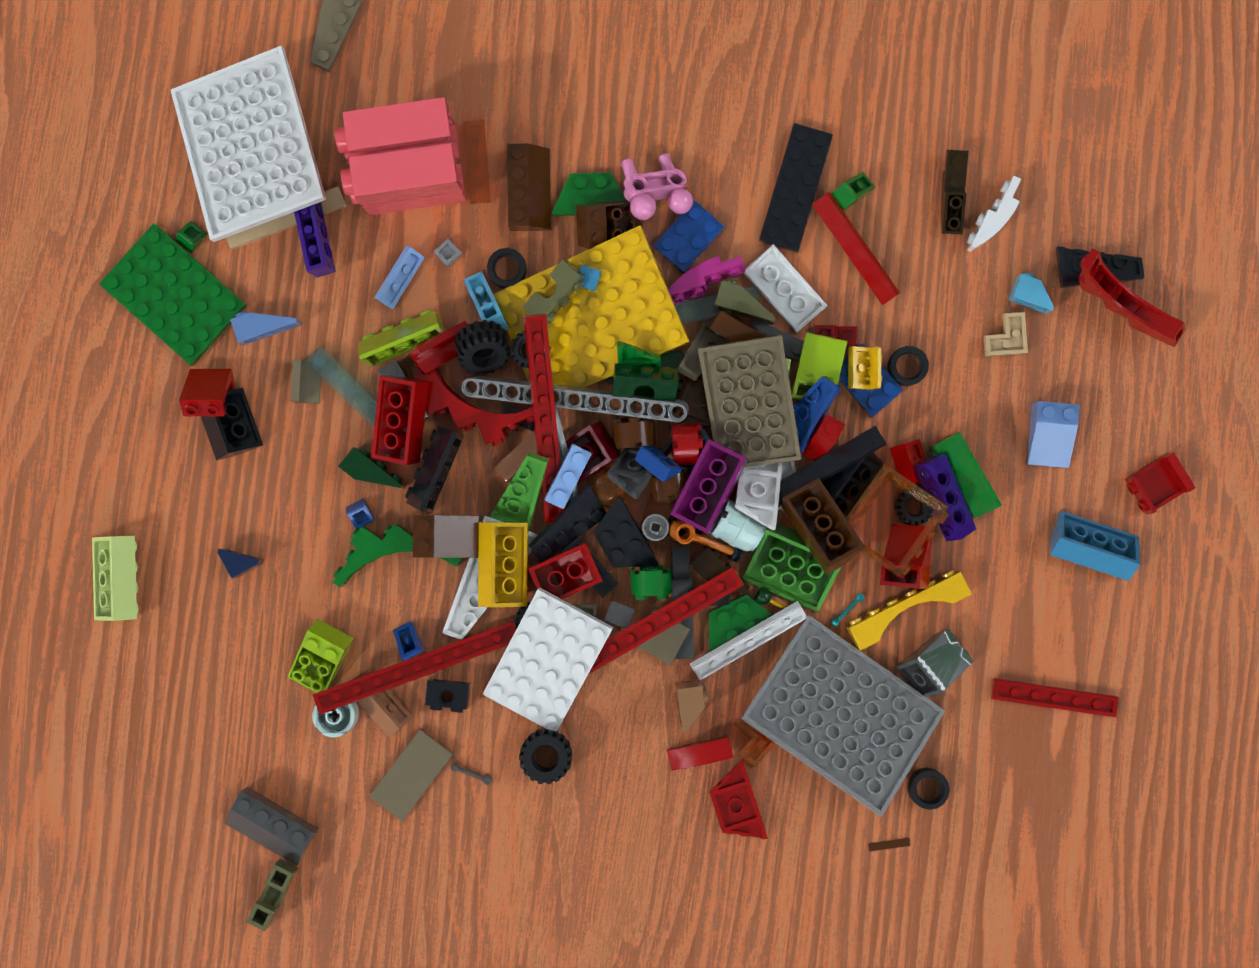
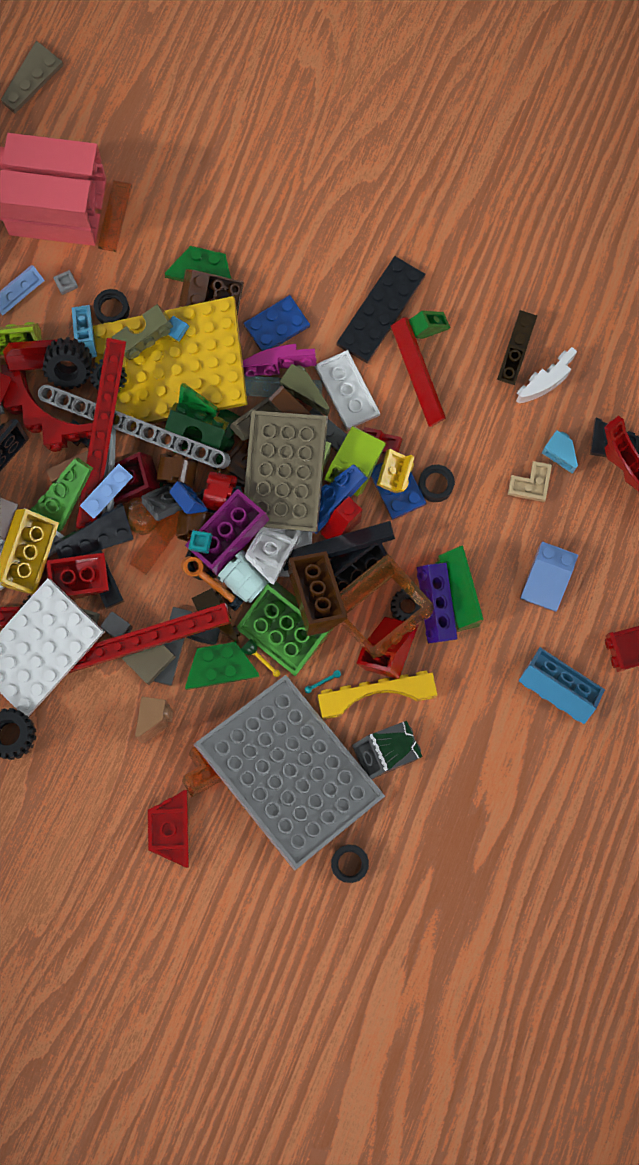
camera: 15 degrees right, 10 degrees down
(529, 187) = (151, 247): reddish brown slope -> none
(623, 539) = (139, 560): black wing -> none
(647, 187) = (251, 271): bright pink piece -> none
(651, 582) = (152, 603): green brick -> none
(655, 527) = (170, 558): light grey wheel -> none
(680, 561) = (184, 592): black tyre -> none
(686, 507) = (200, 541): none -> teal tile
(700, 753) = (150, 771): red slope -> none
(748, 640) = (224, 682): white tile -> none
(889, 844) = (300, 908): reddish brown piece -> none
(907, 457) = (414, 557): red hinge -> none
(1054, 697) = (490, 814): red tile -> none

